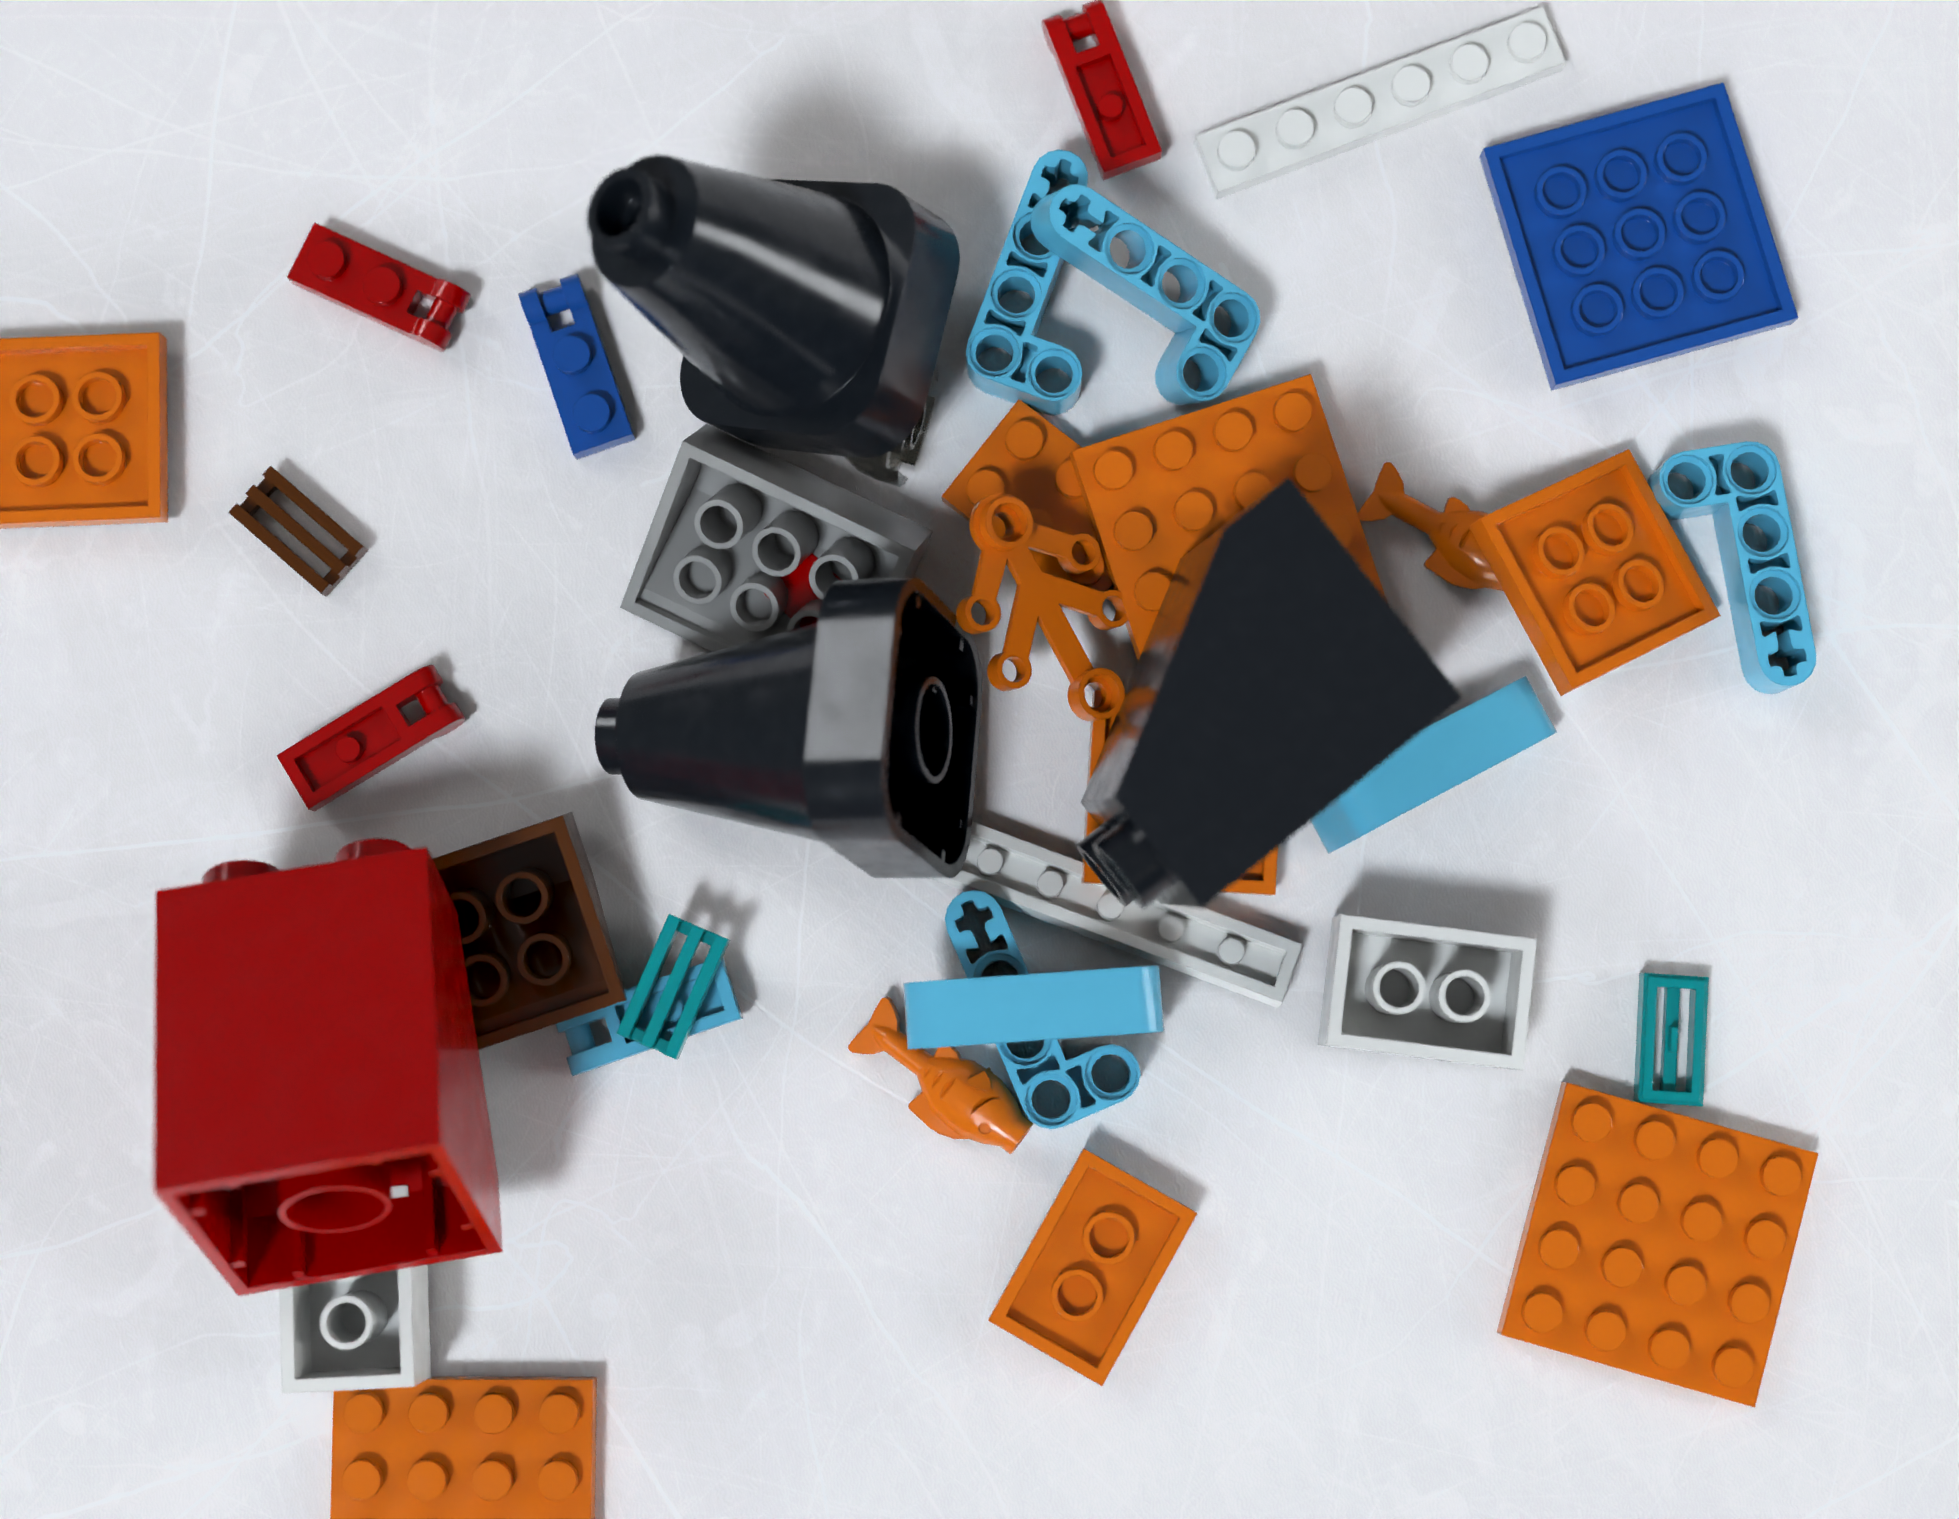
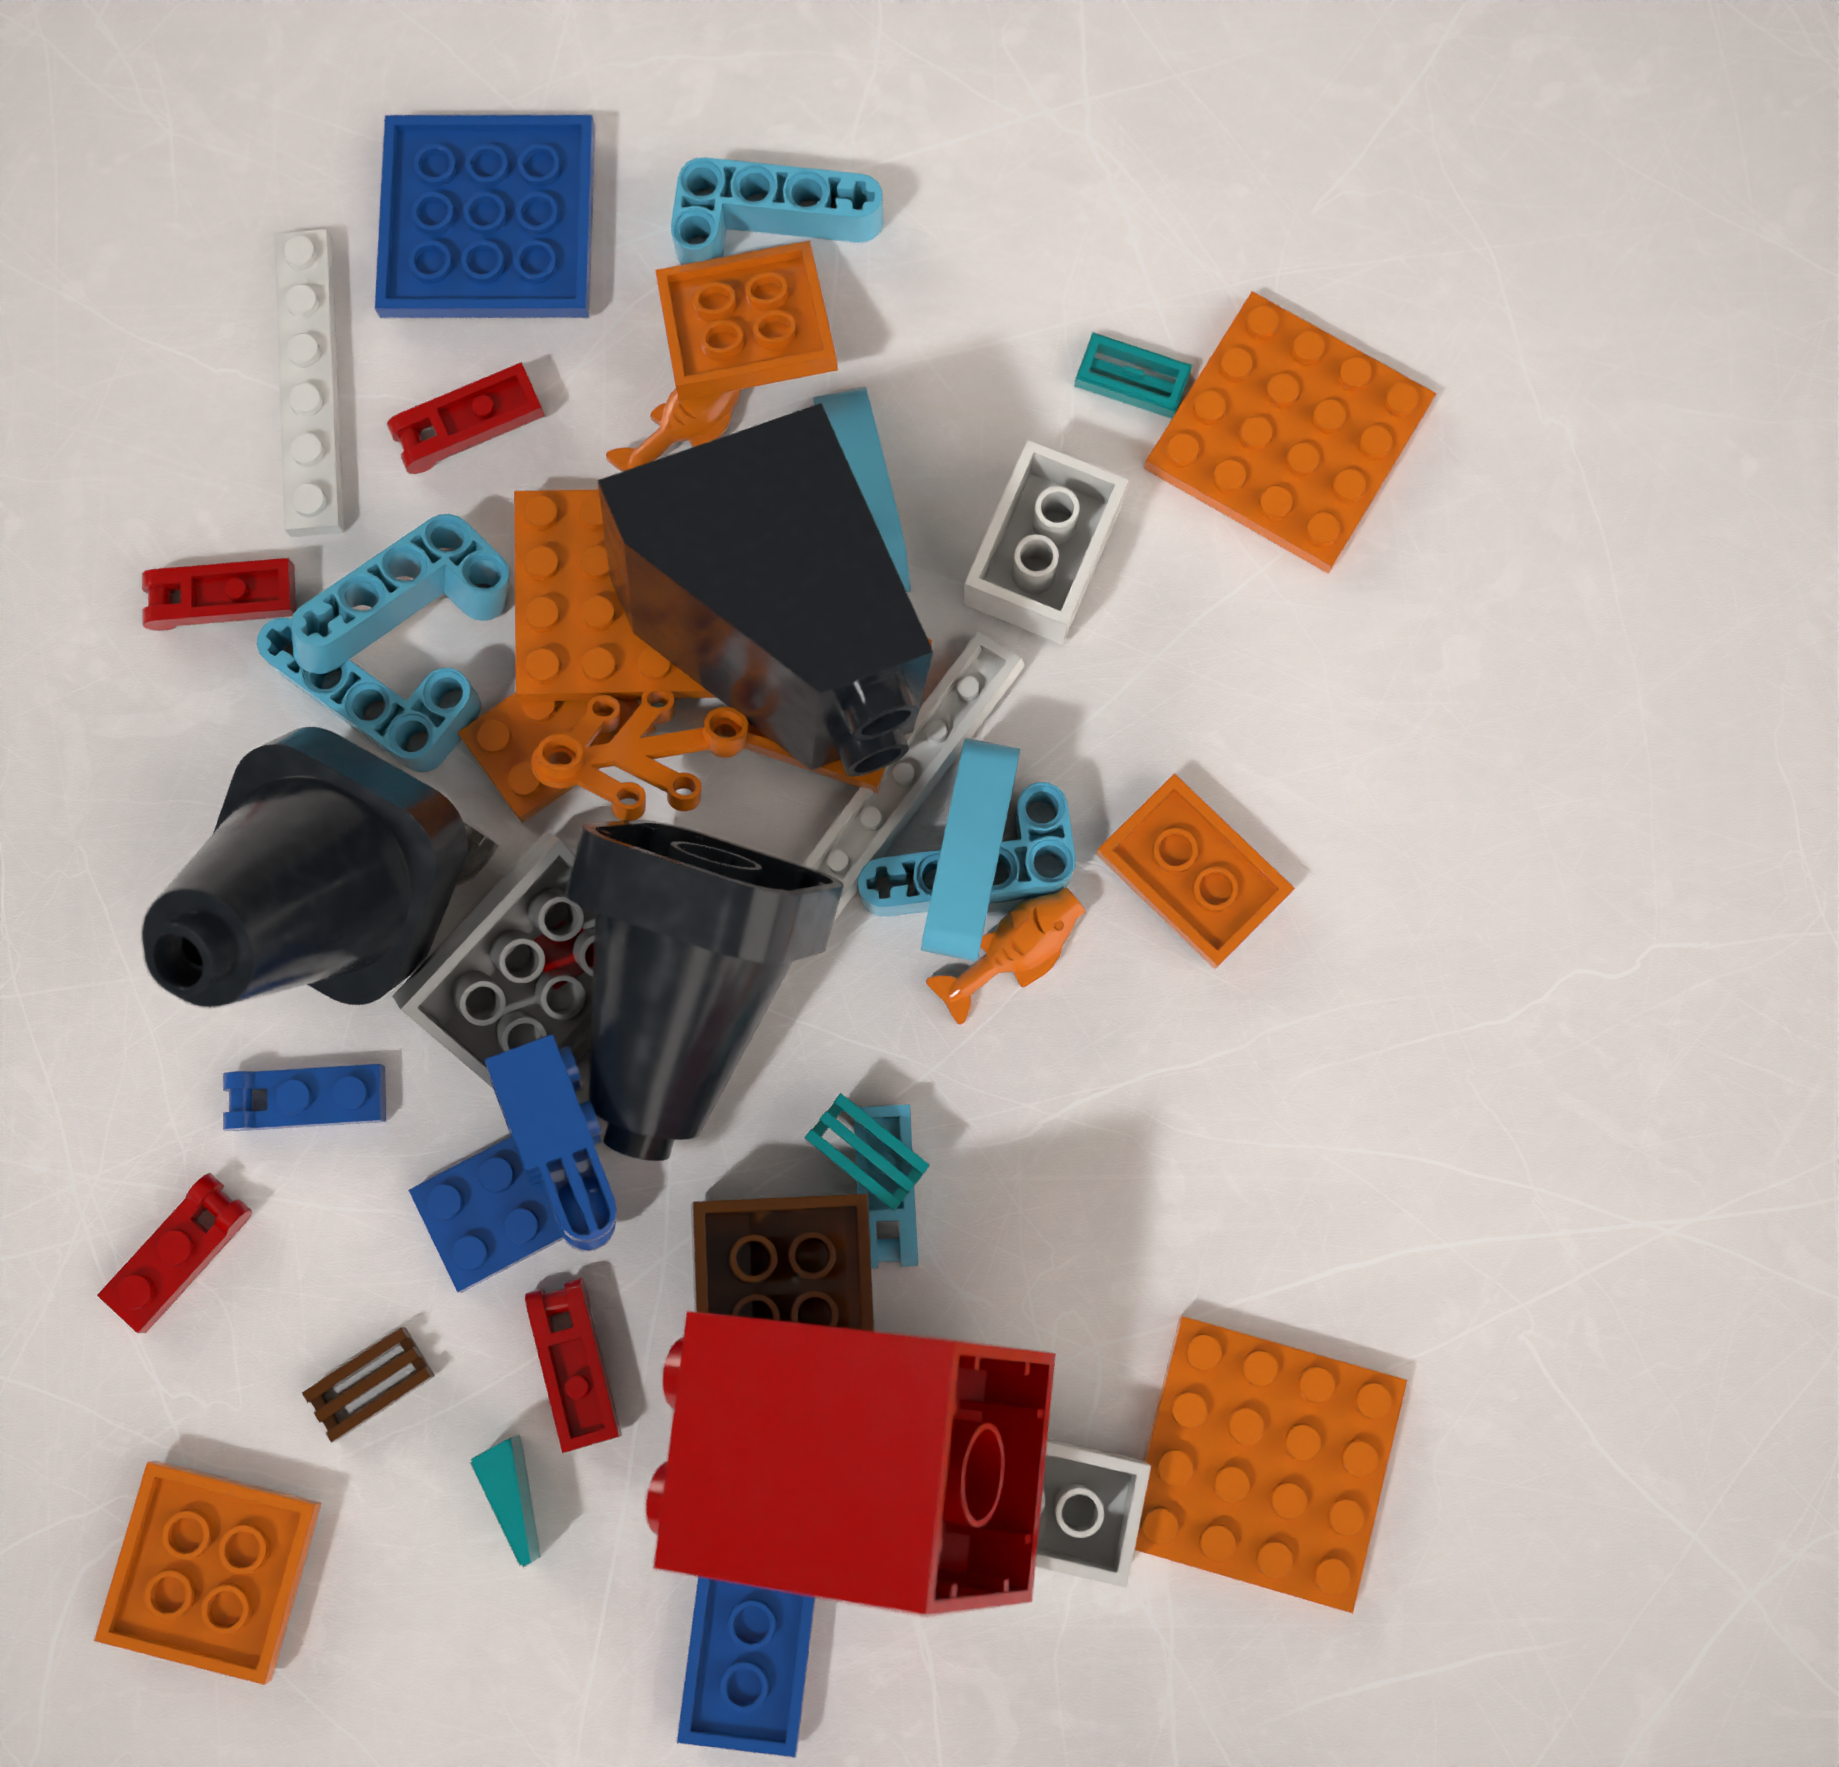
camera: 80 degrees left, 5 degrees down
(90, 1014) = (746, 1668): none -> blue plate
(228, 707) = (507, 1488): none -> teal slope
(526, 620) = (485, 1215): none -> blue plate
(585, 650) = (556, 1138): none -> blue brick
(1387, 292) = (465, 417): none -> red plate

